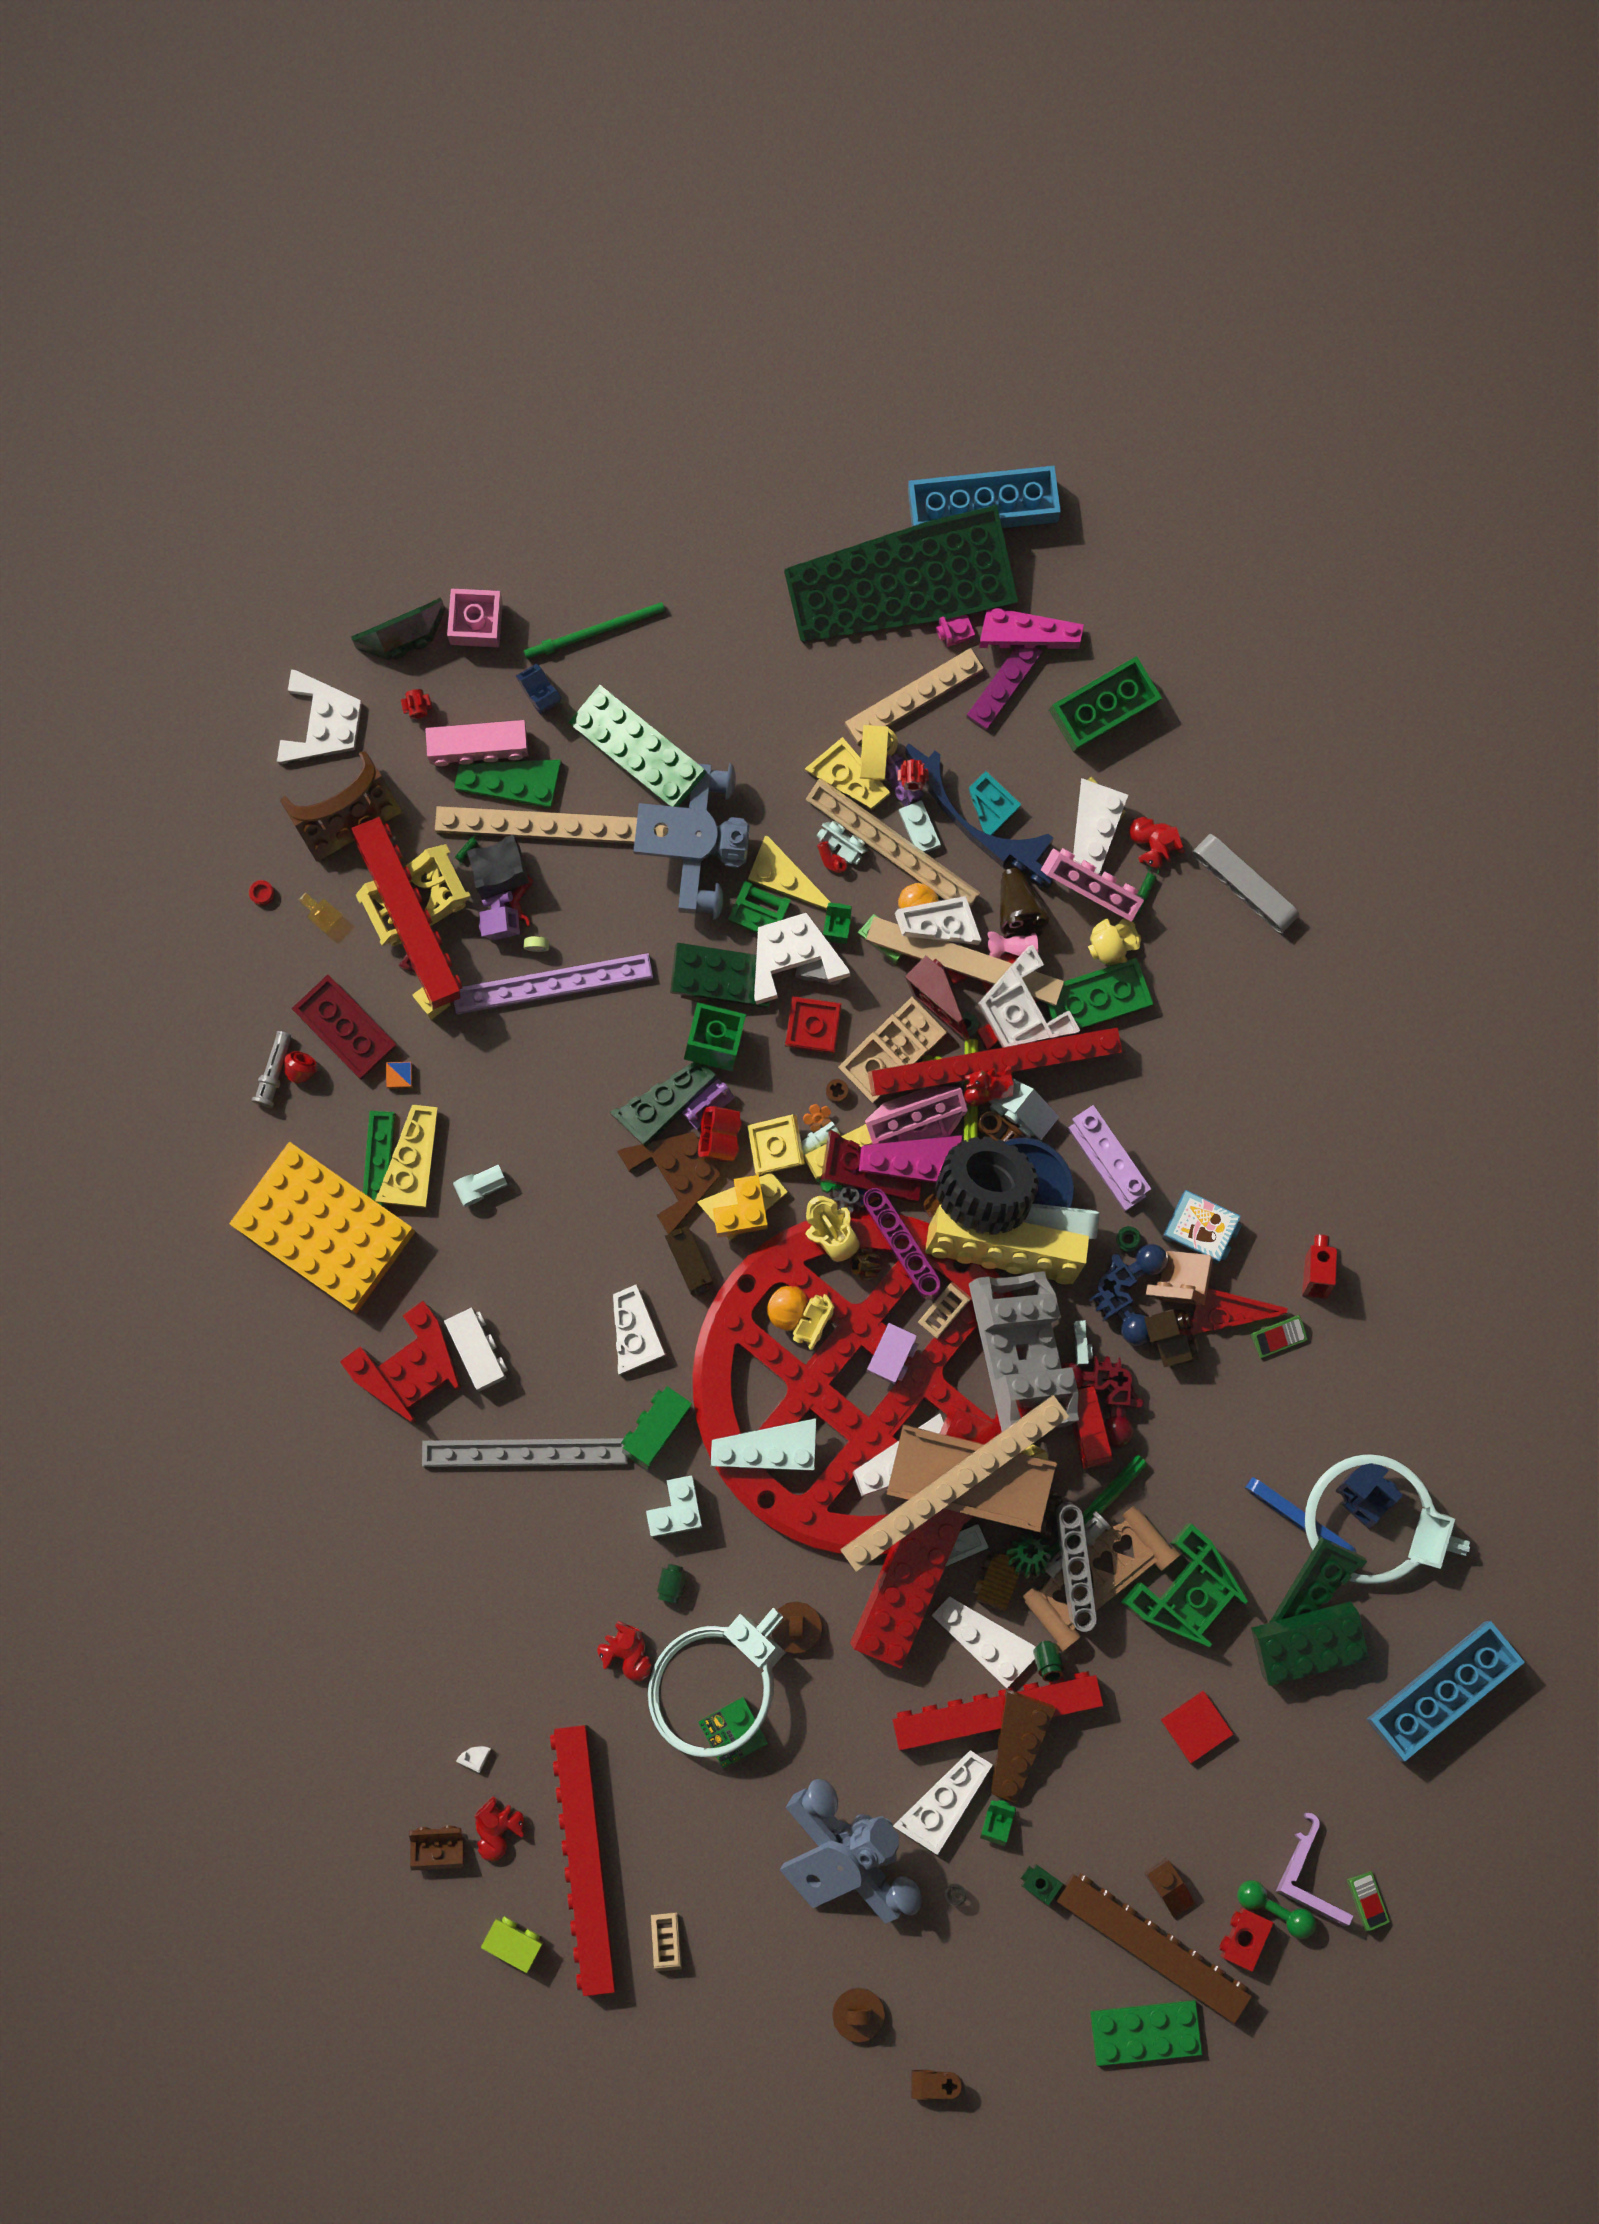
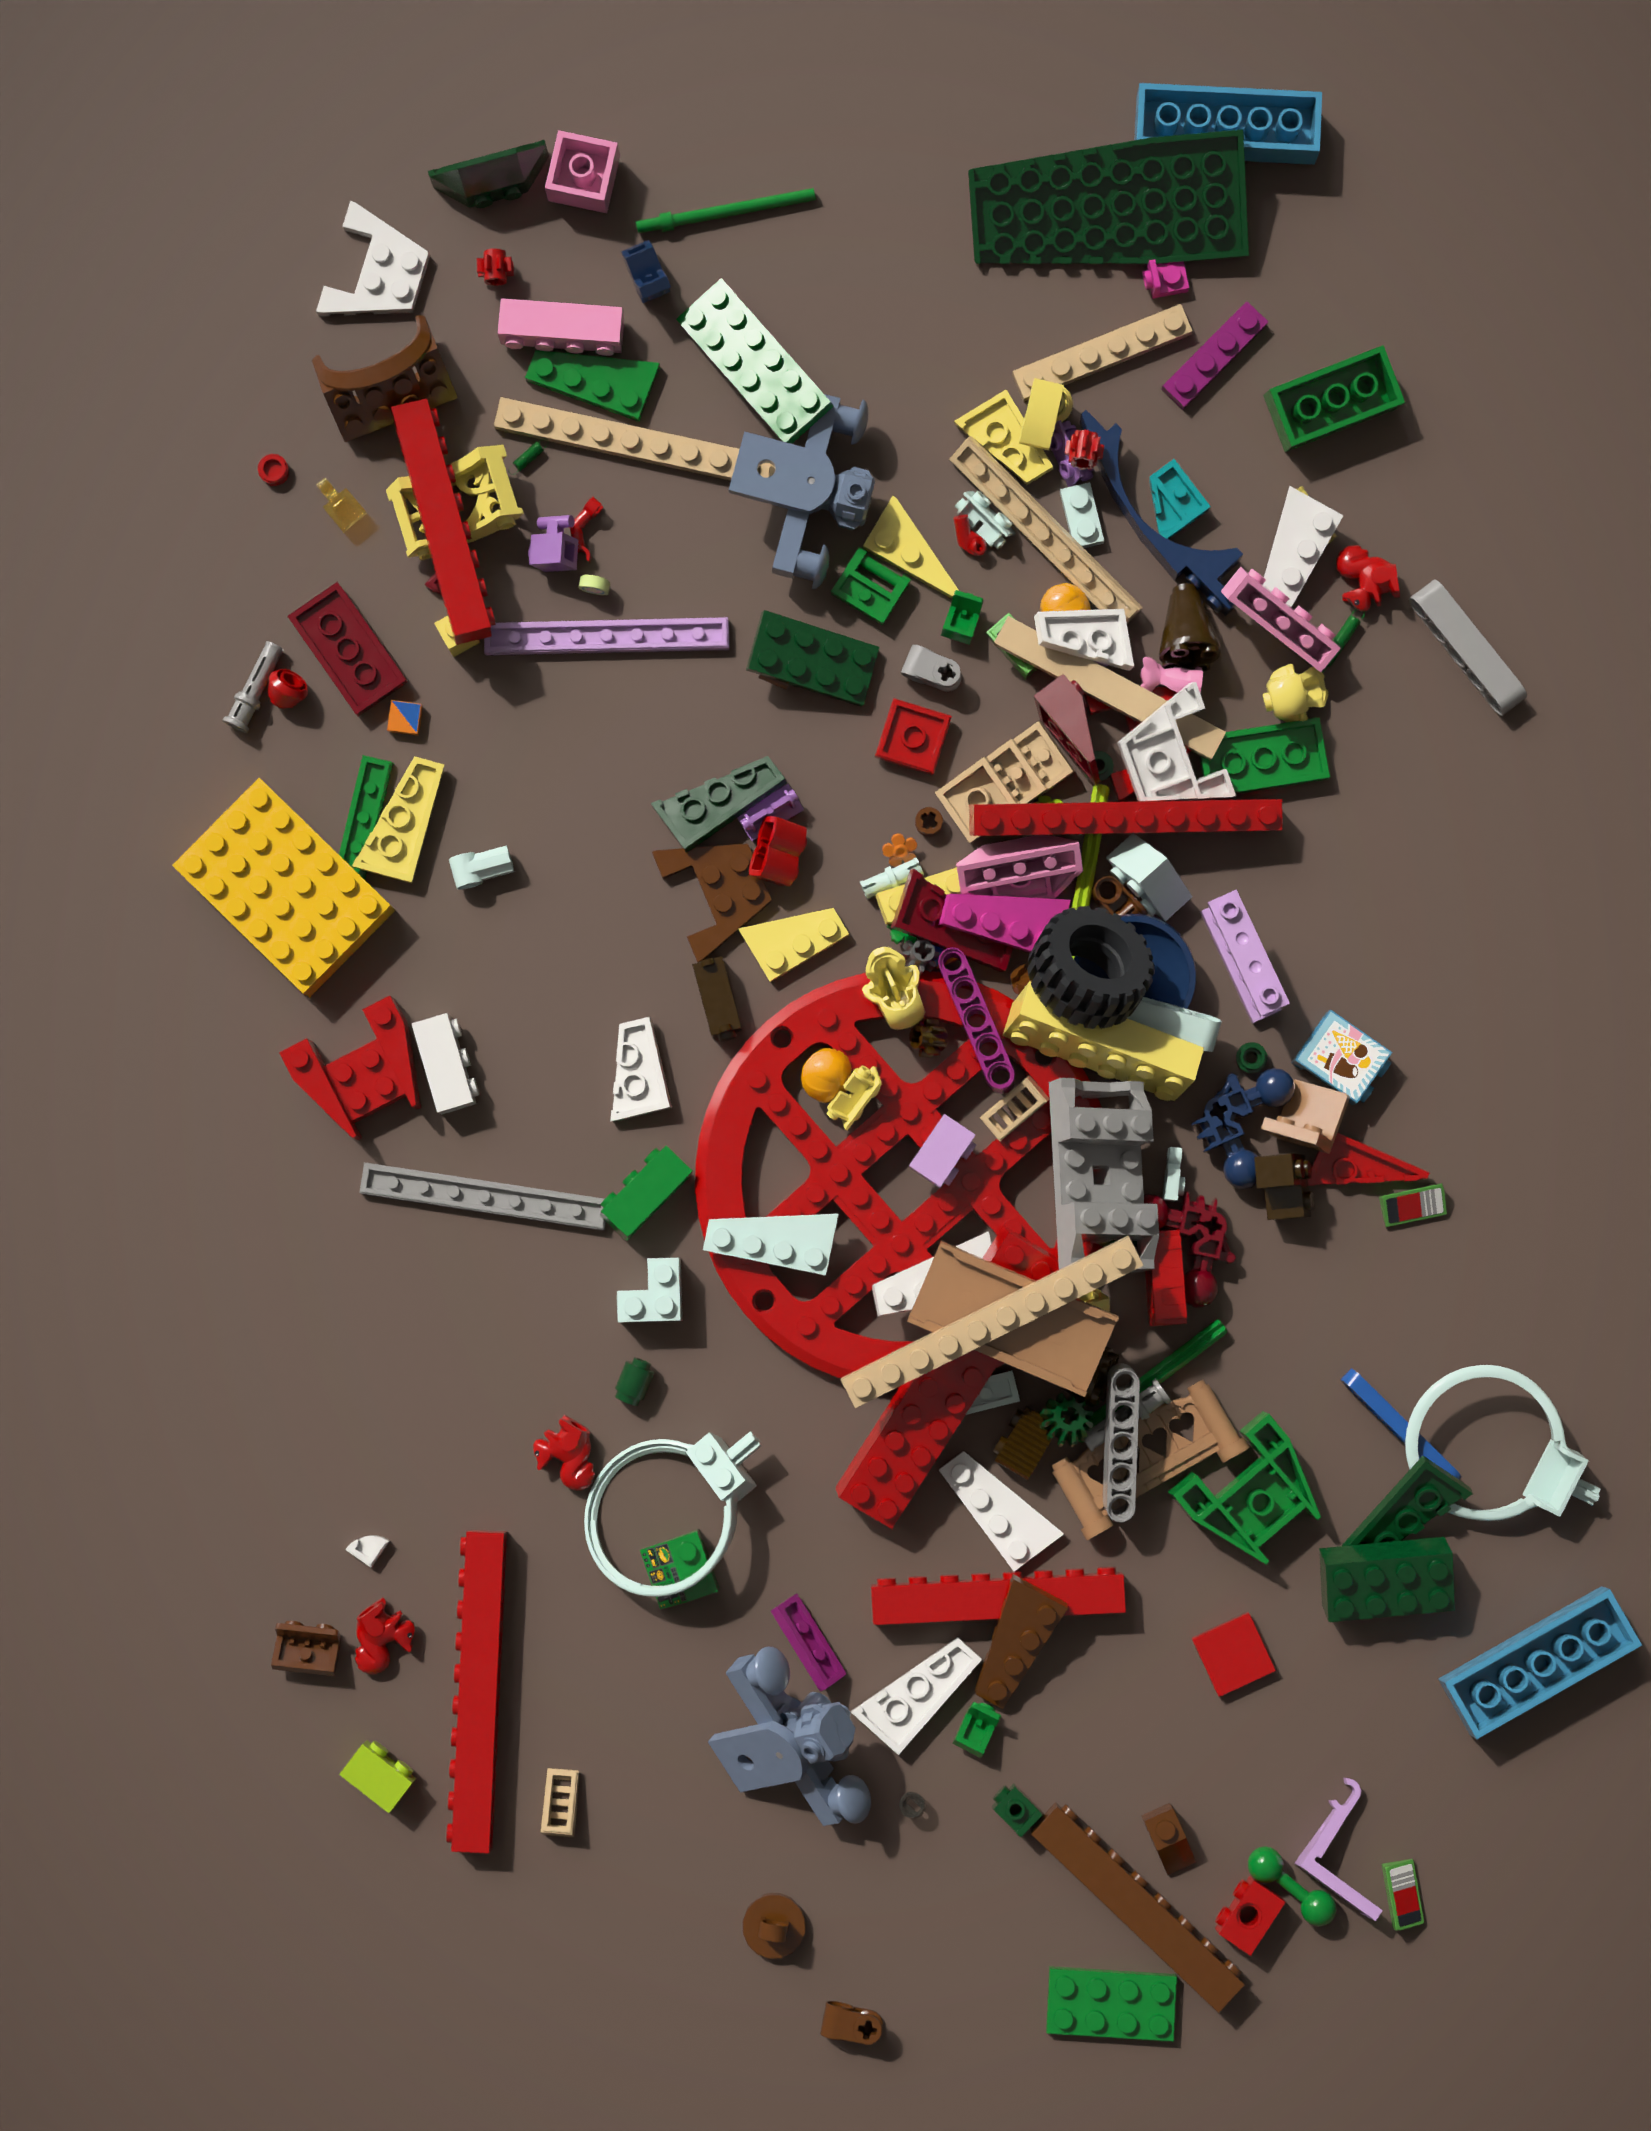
camera: 15 degrees right, 5 degrees up
(498, 867) = (562, 484): black brick -> none
(714, 1036) = (791, 732): green brick -> none
(747, 1214) = (794, 955): yellow brick -> none
(776, 1144) = (844, 875): light yellow tile -> none
(790, 945) = (901, 635): white wing -> none
(799, 1628) = (777, 1460): reddish brown tile -> none
(848, 1774) = (808, 1642): none -> magenta plate
(988, 1086) = (1112, 846): red animal -> none
(1016, 628) = (1245, 289): dark pink wing -> none
(1048, 1661) = (1069, 1548): dark green brick -> none
(1319, 1268) = (1477, 1131): red torso -> none
(1368, 1493) = (1489, 1412): dark blue brick -> none

